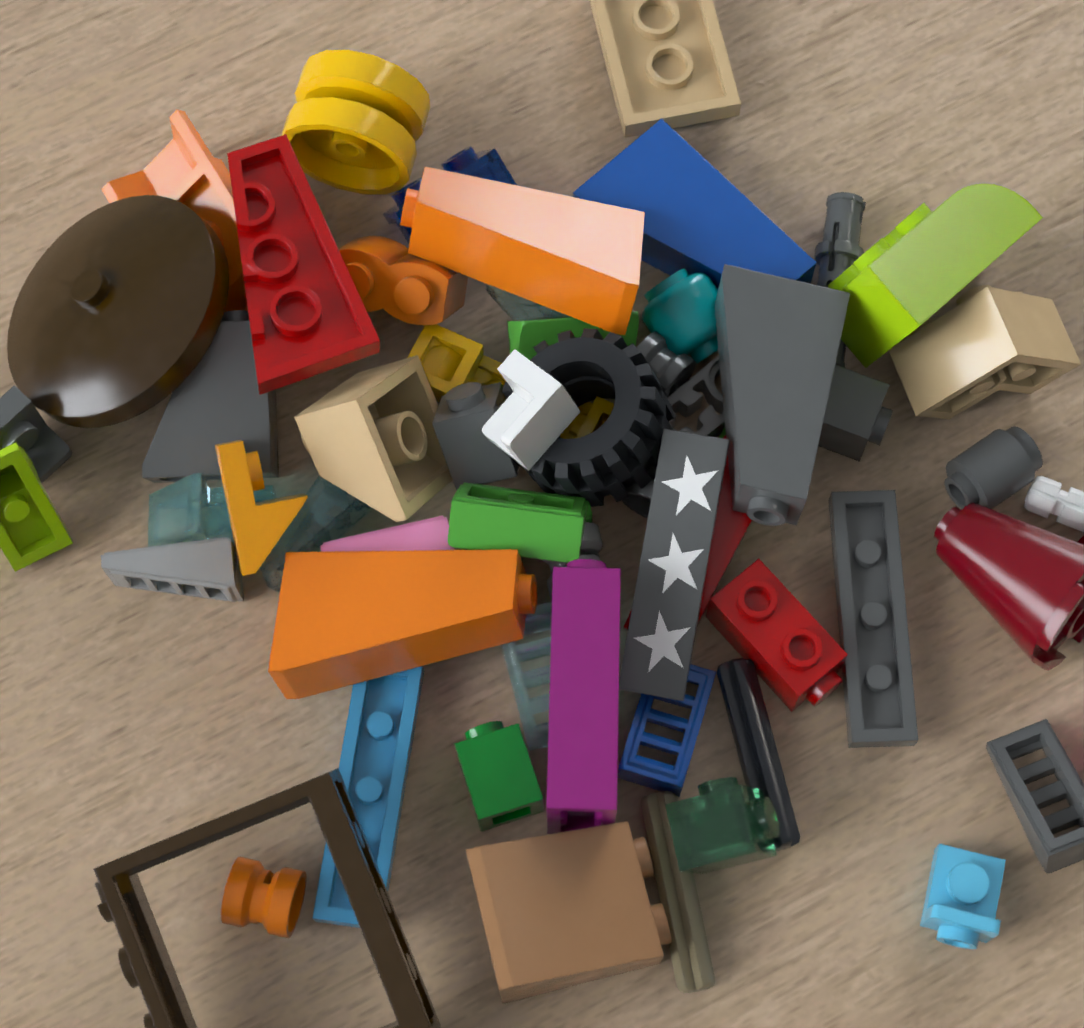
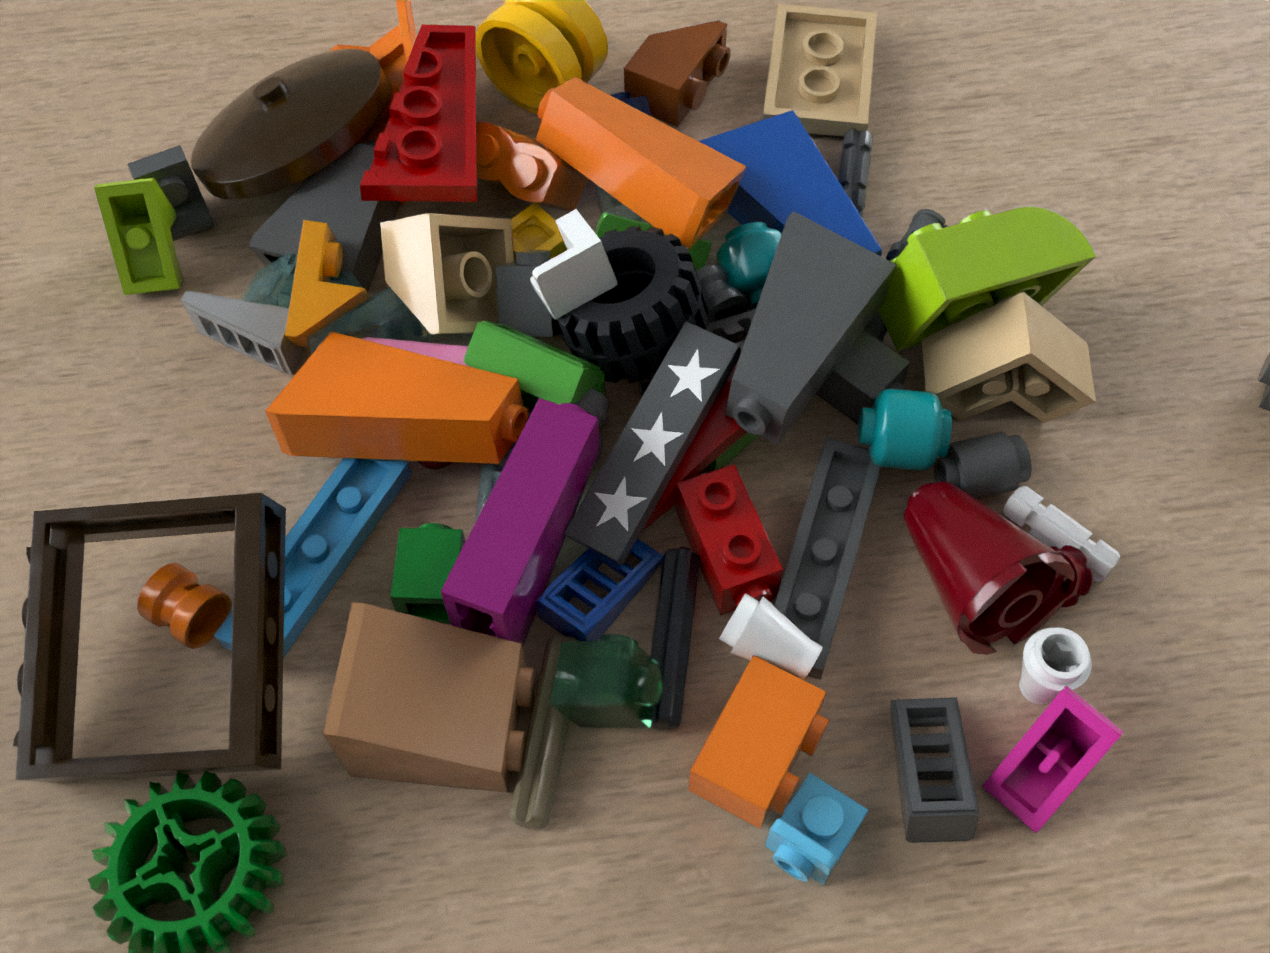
camera: 20 degrees right, 10 degrees down
(504, 96) = (677, 69): none -> dark orange slope
(743, 158) = (855, 166): none -> dark grey axle
(859, 730) = (769, 635): none -> white cone
(888, 835) = (758, 742): none -> orange brick
(911, 463) = (905, 429): none -> teal head

